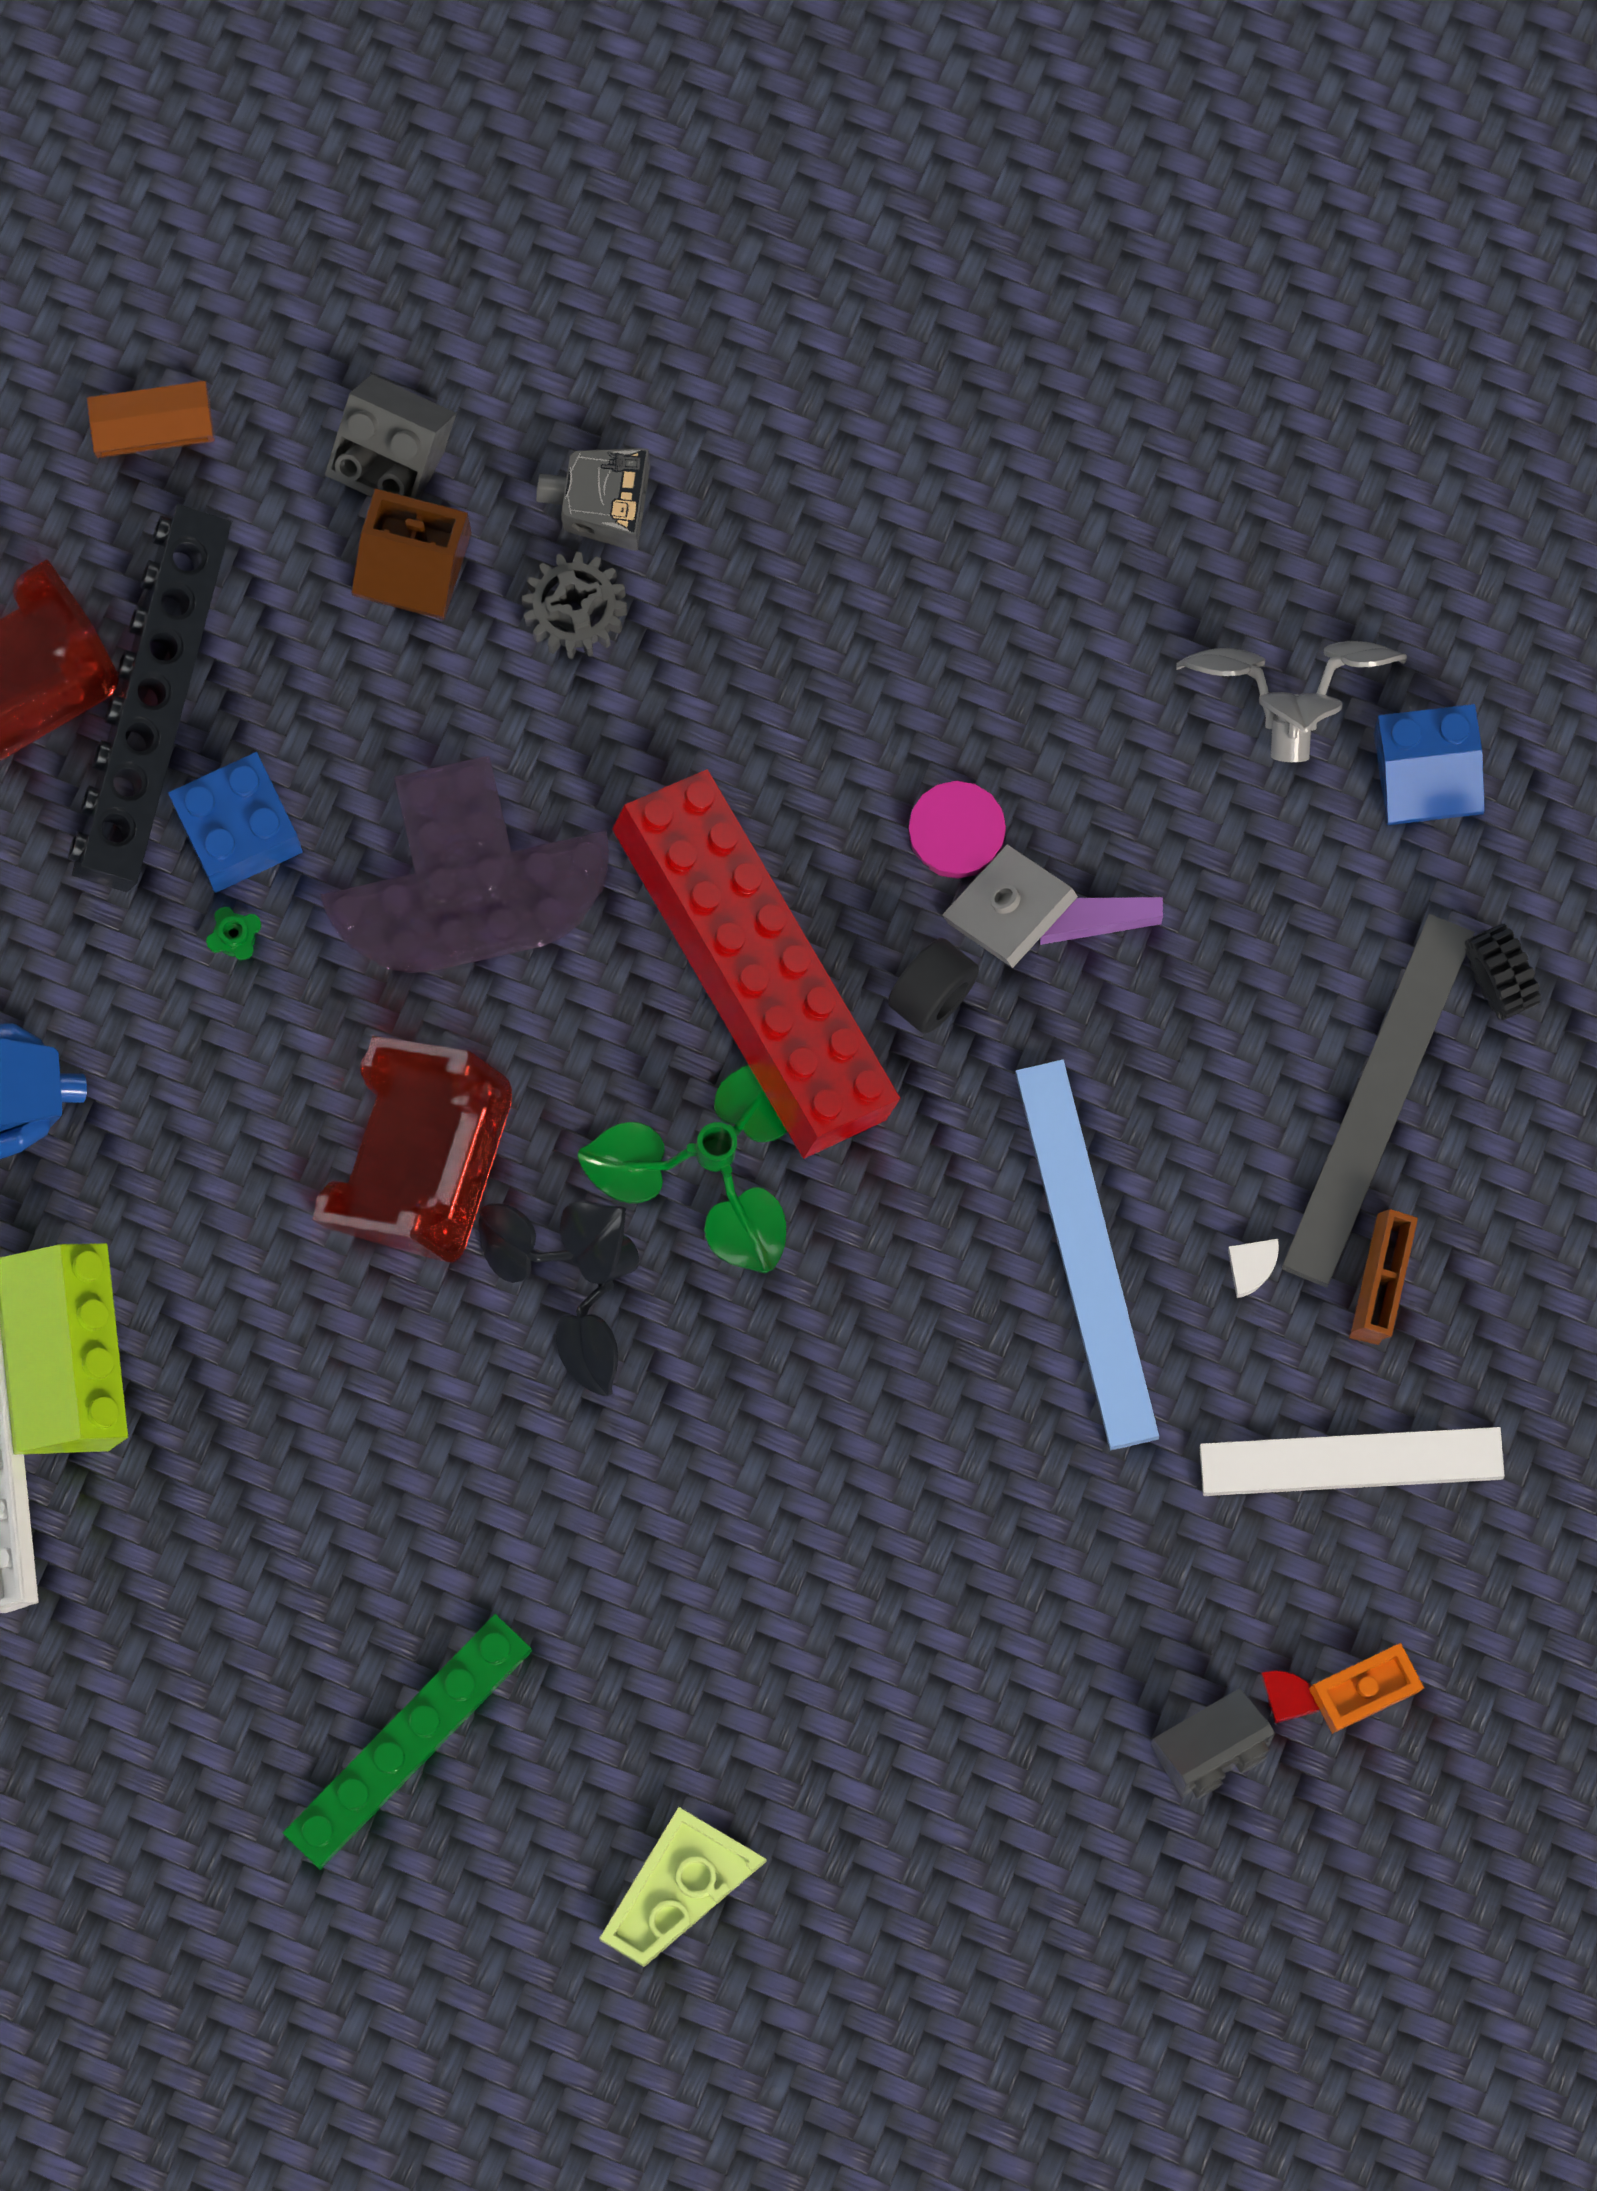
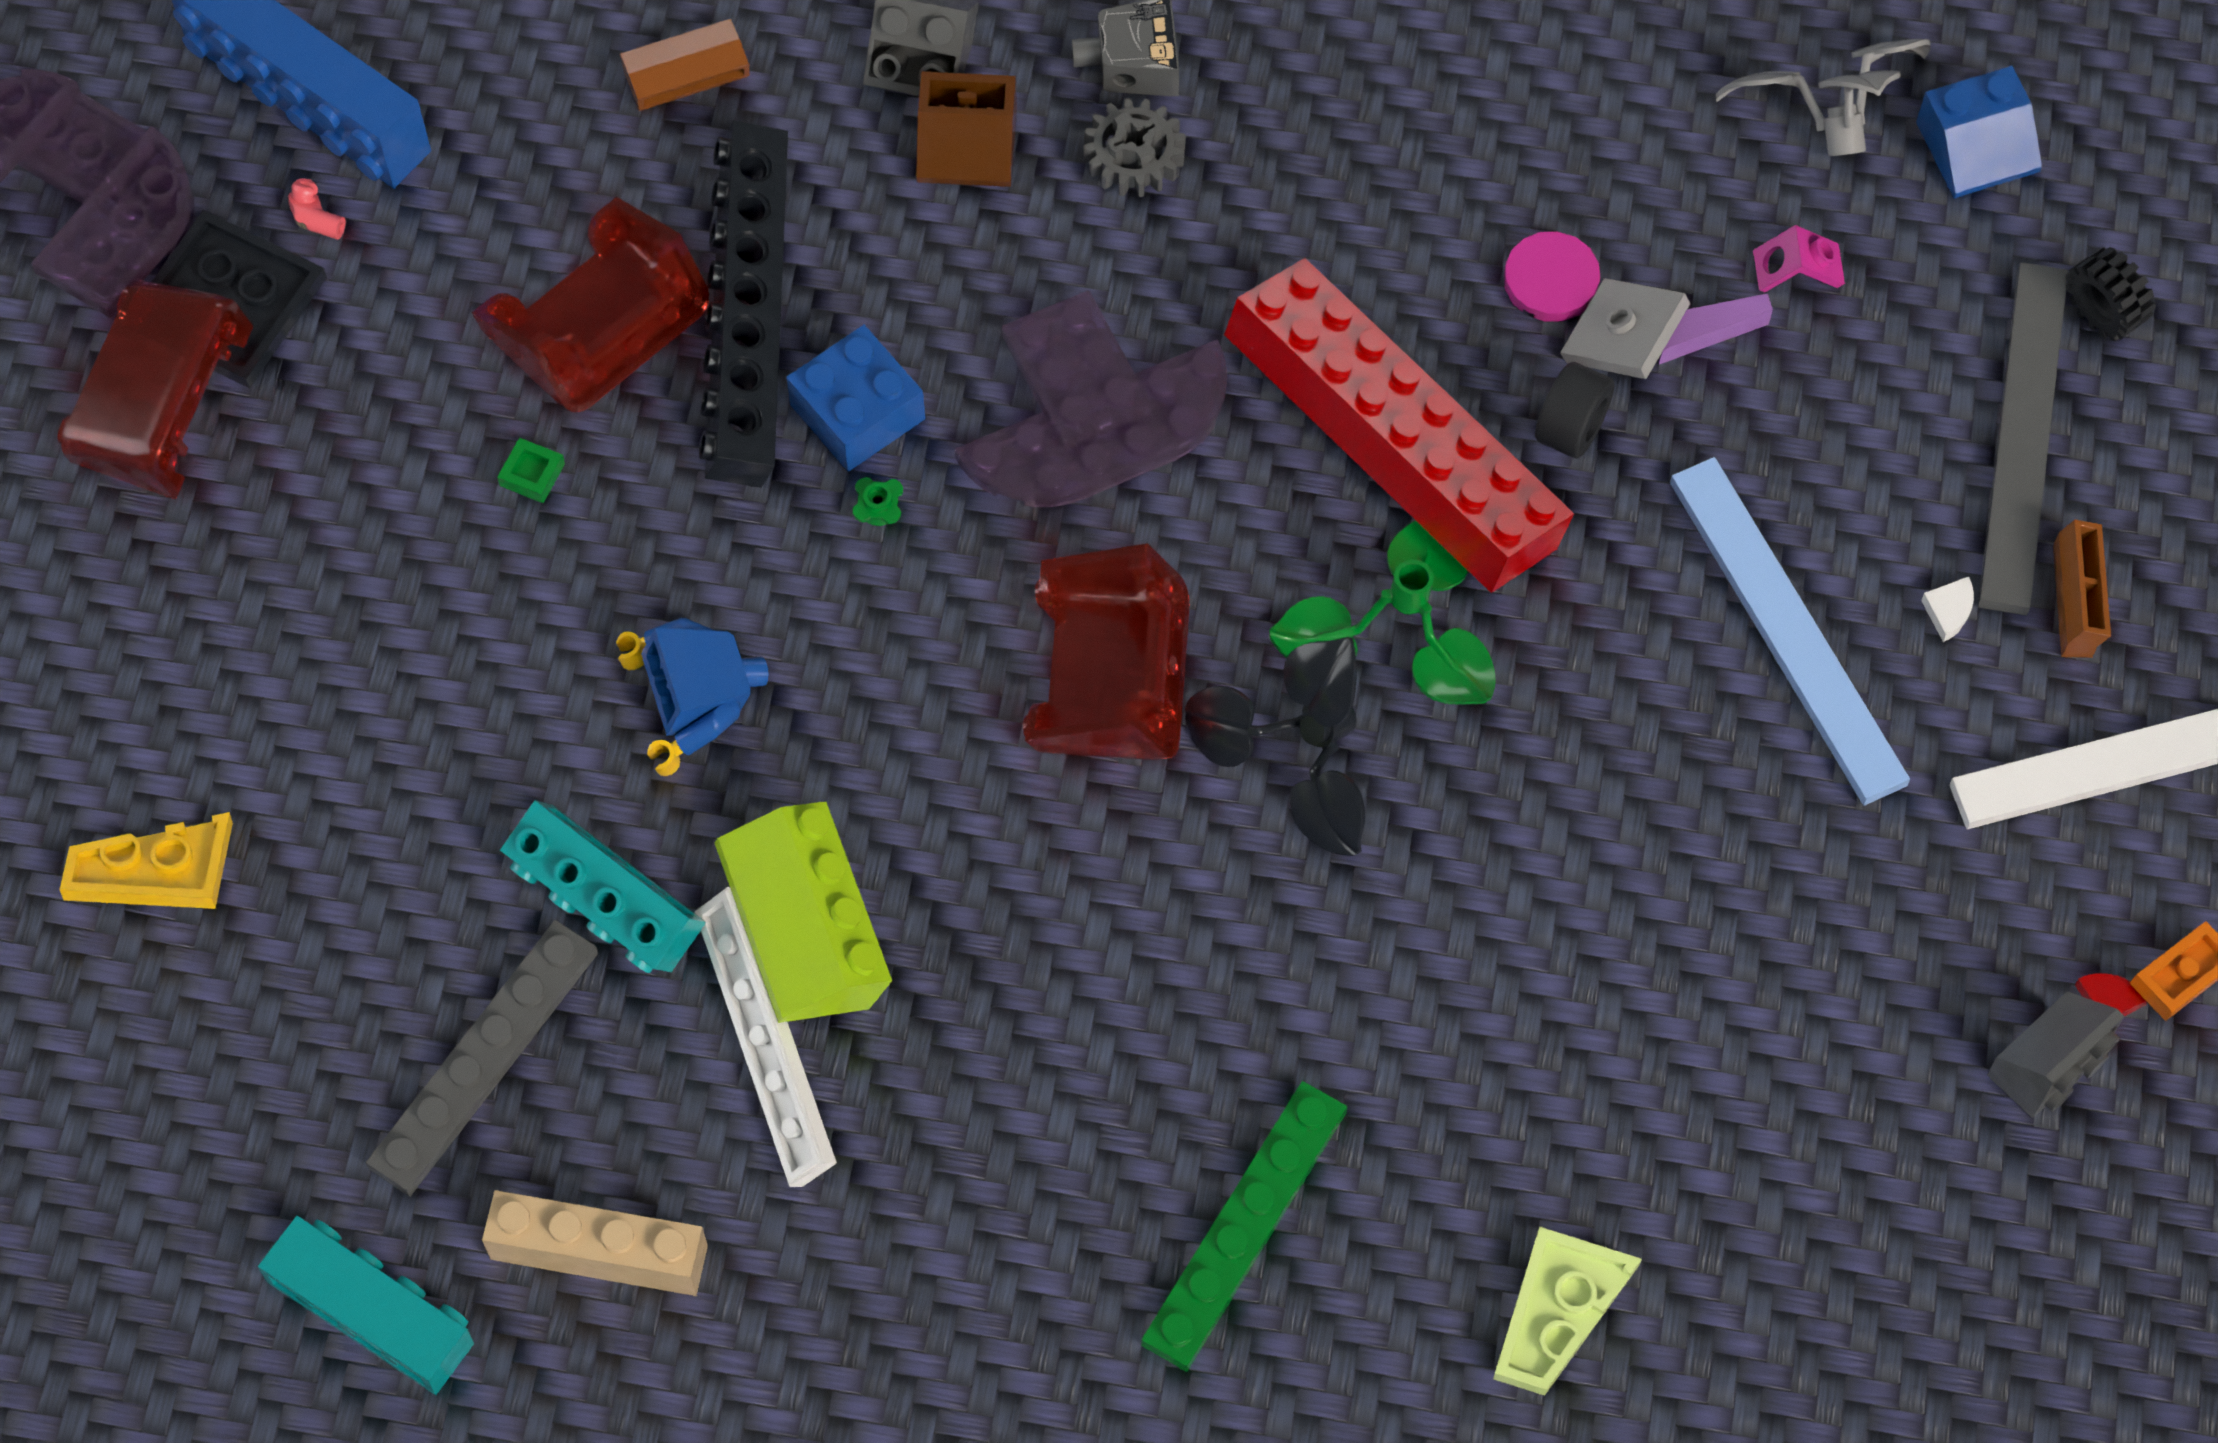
camera: 15 degrees left, 10 degrees down
(1211, 863) = (1803, 253): none -> dark pink bracket

